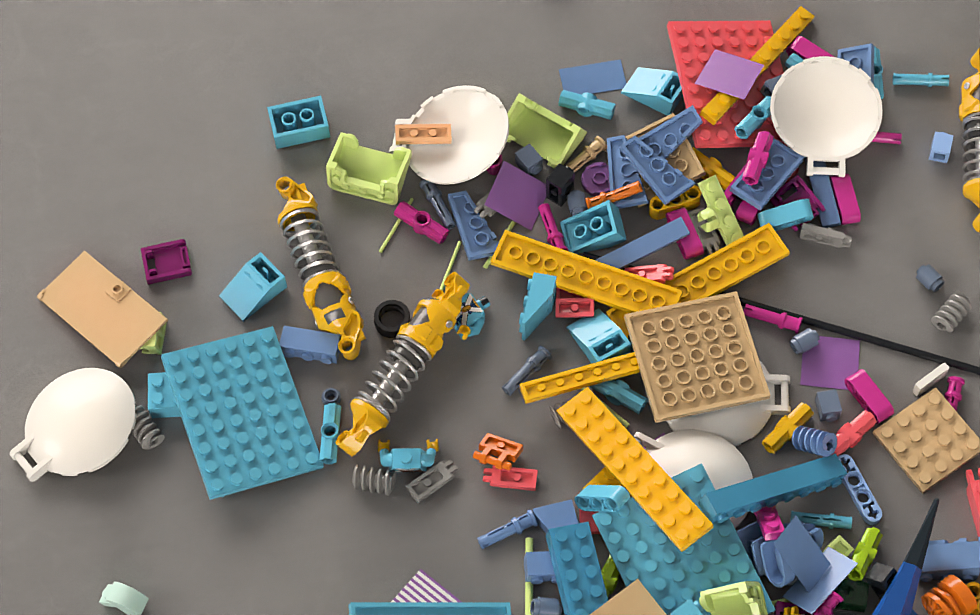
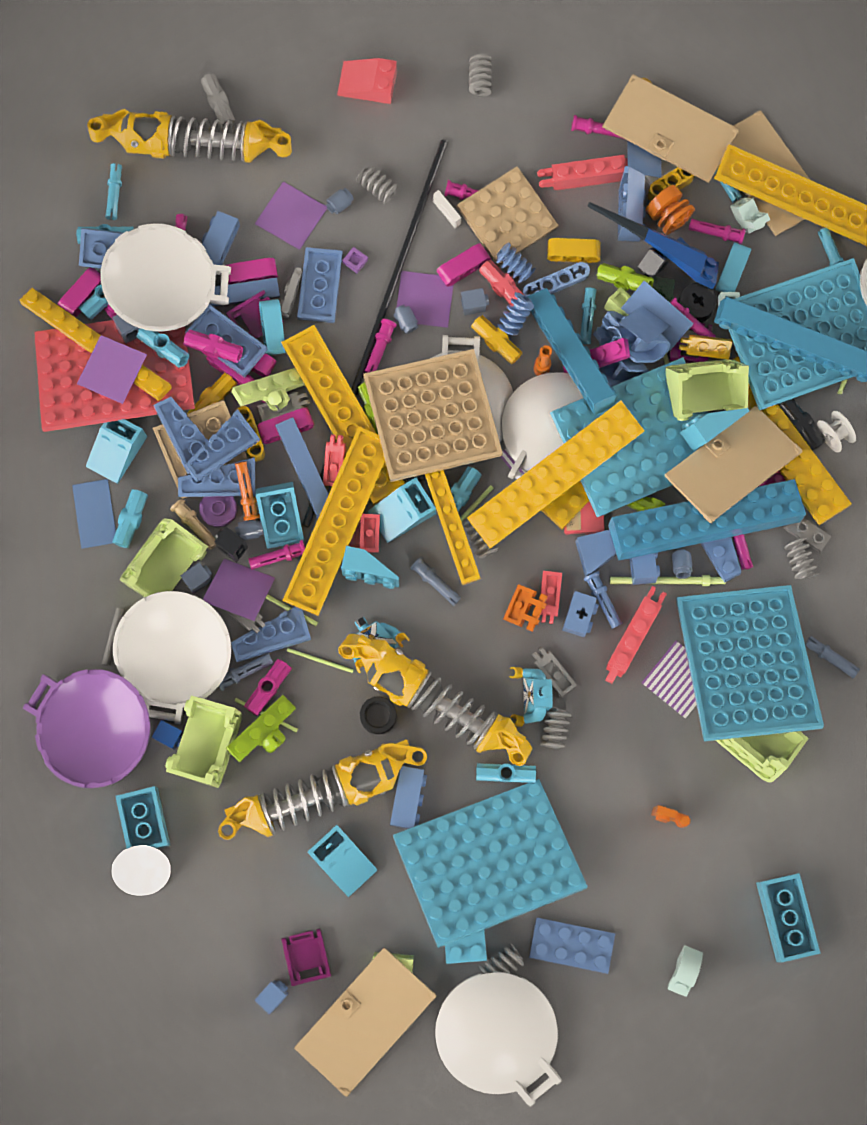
camera: 95 degrees left, 15 degrees up
(131, 228) = (272, 996): none -> medium blue brick
(158, 496) = (572, 945): none -> medium blue plate
(253, 121) = (141, 870): none -> flat silver sticker
(280, 578) = (665, 815): none -> orange plate
(331, 392) = (469, 770): sand blue plate -> none
(379, 139) = (168, 735): none -> blue brick
(379, 218) = (263, 730): none -> lime plate
(386, 76) = (90, 727): none -> medium lavender dish
(423, 134) = (167, 685): light nougat plate -> none
(468, 557) = (634, 635): none -> coral hinge
(482, 501) = (573, 623): none -> medium blue brick
(602, 498) = (582, 506): medium azure beam -> none
(762, 465) = (543, 360): none -> orange pin
(836, 262) = (320, 285): none -> medium blue plate
(866, 294) = (355, 260): none -> medium lavender plate
(872, 441) = (514, 263): none -> medium blue piece
(875, 170) = (220, 236): none -> medium blue brick
(895, 506) = (574, 250): none -> yellow beam
(912, 237) = (291, 215): none -> medium lavender sticker
(941, 147) = (193, 178): light blue brick -> none

